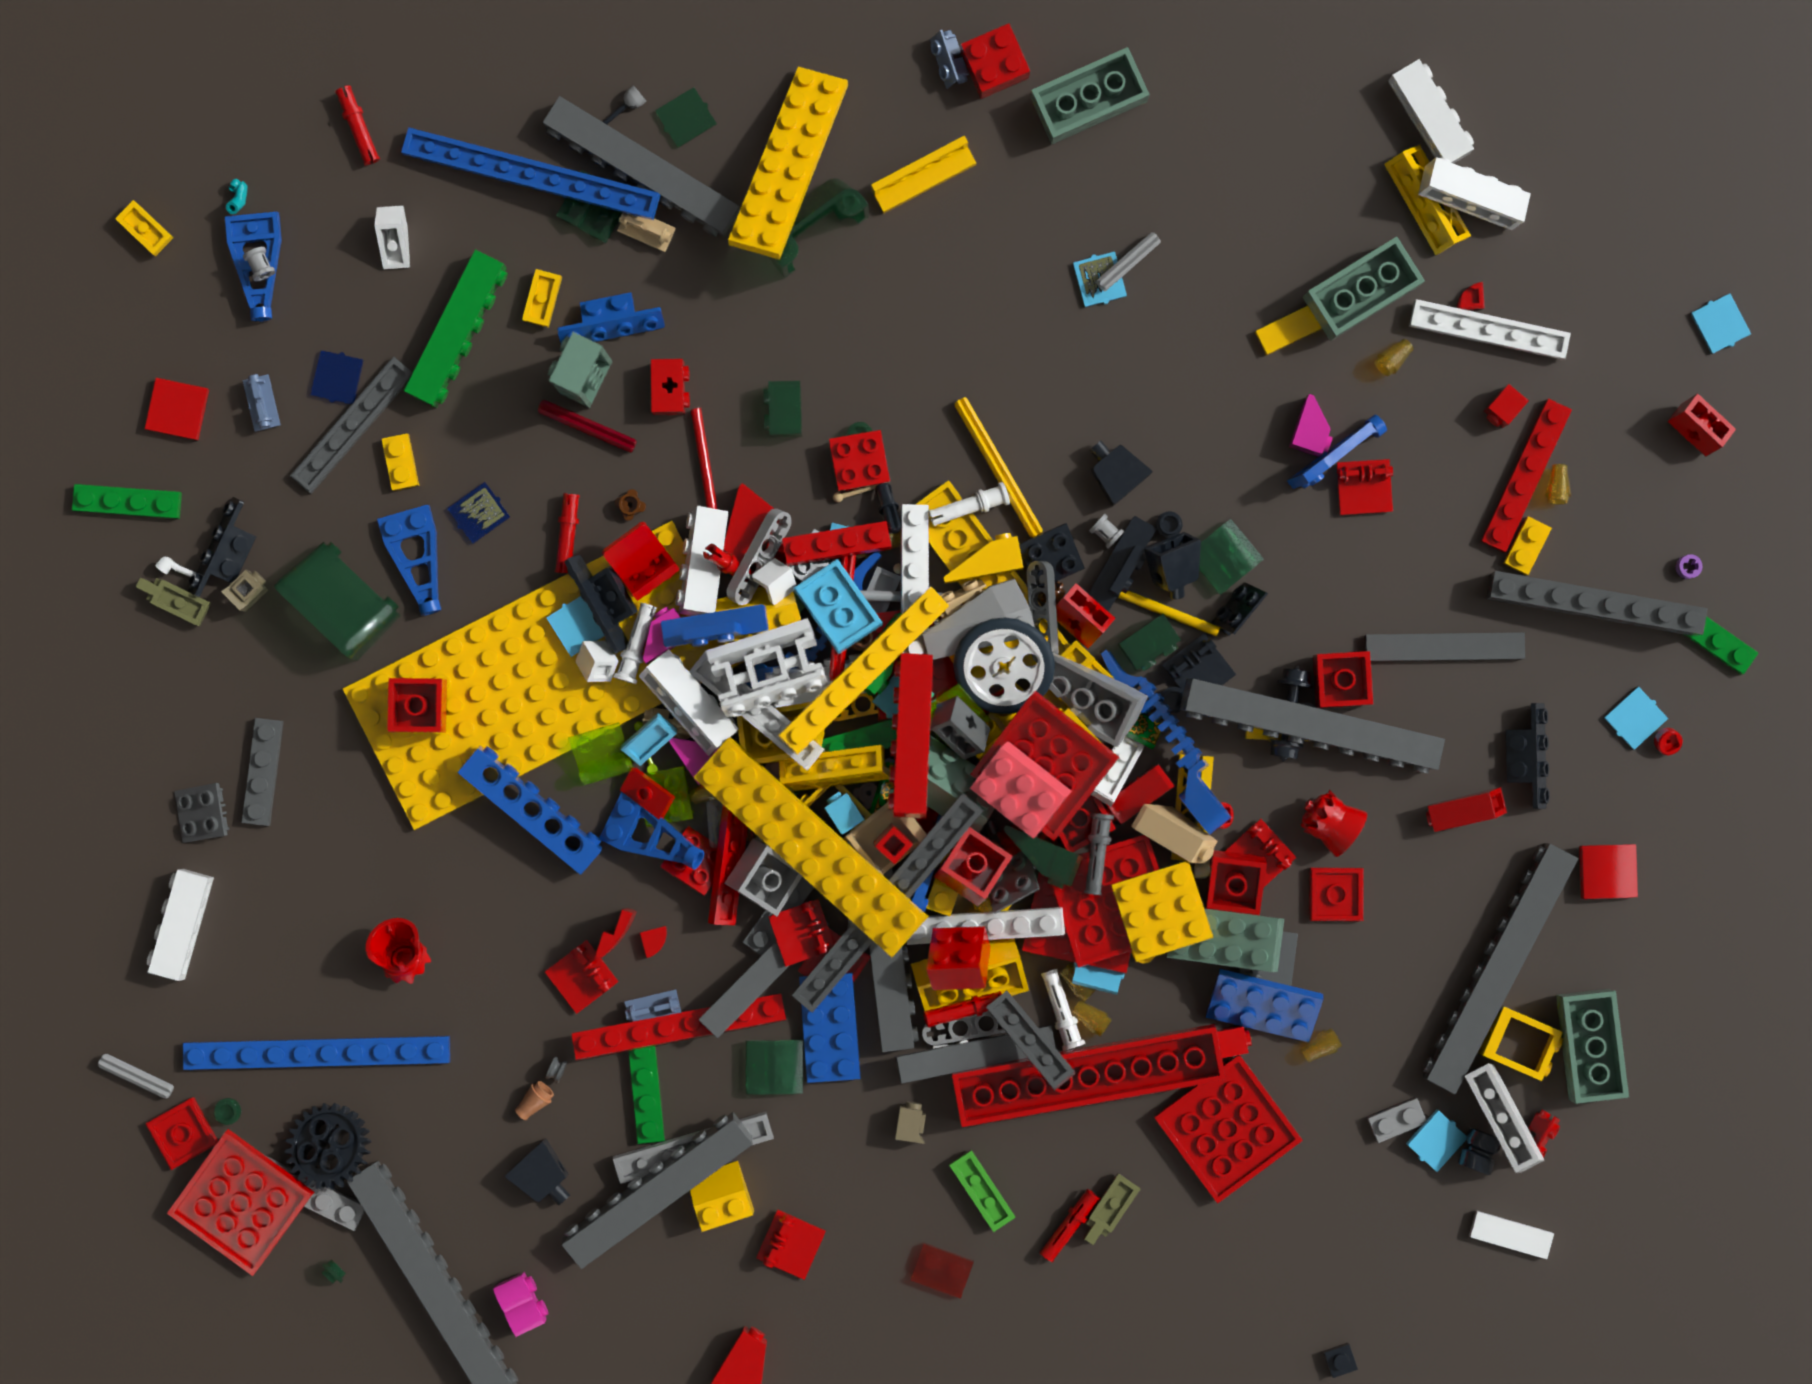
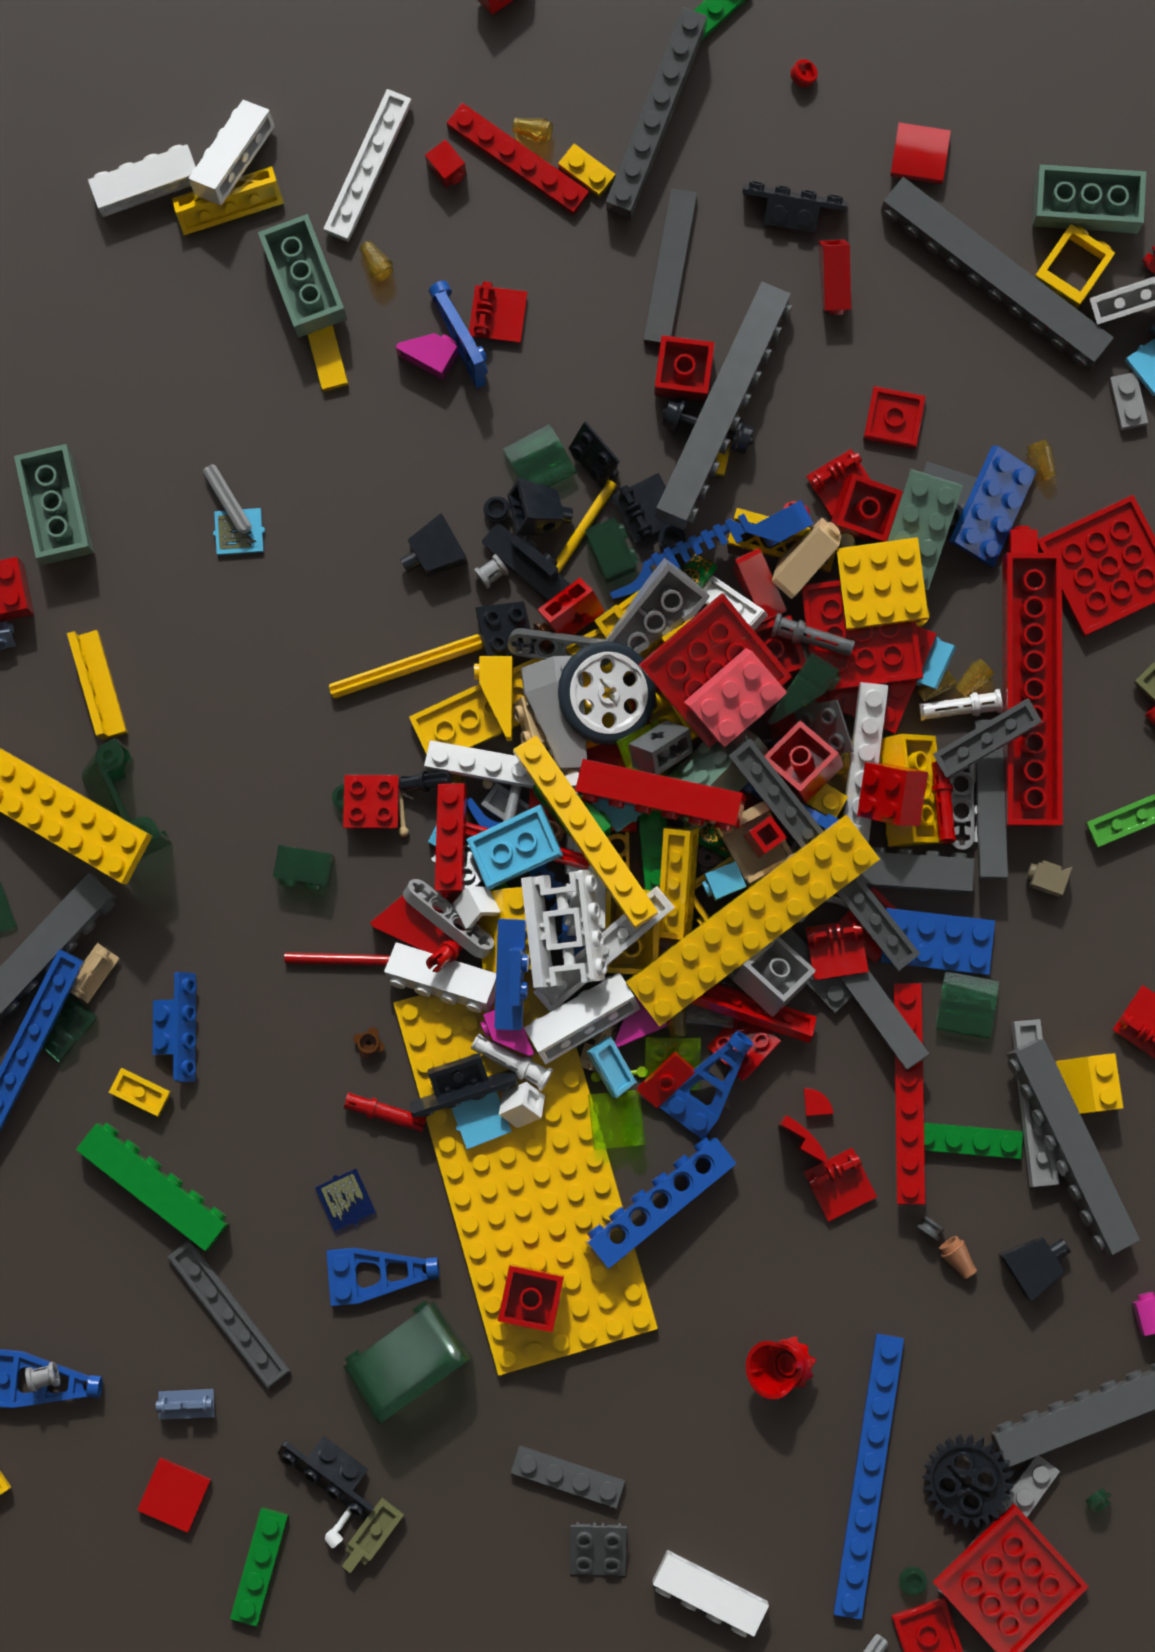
camera: 70 degrees left, 5 degrees down
(246, 590) = (376, 1456): dark tan window -> none
(337, 377) = (176, 1320): clear blue piece -> none
(392, 237) = (44, 1233): white slope -> none
(400, 462) = (276, 1271): yellow plate -> none
(580, 369) = (221, 1061): sand green brick -> none
(587, 426) = (279, 1071): dark red axle -> none
(640, 560) = (428, 1039): red bracket -> none
(652, 1006) = (883, 1116): sand blue hinge -> none
(661, 400) = (240, 980): red brick -> none
(981, 501) = (437, 688): white pin -> none
(1333, 822) = (824, 404): red hat -> none
(1472, 298) = (333, 176): red tile -> none
(1635, 718) = (775, 100): medium azure piece -> none
(1685, 559) = (642, 29): medium lavender bush -> none

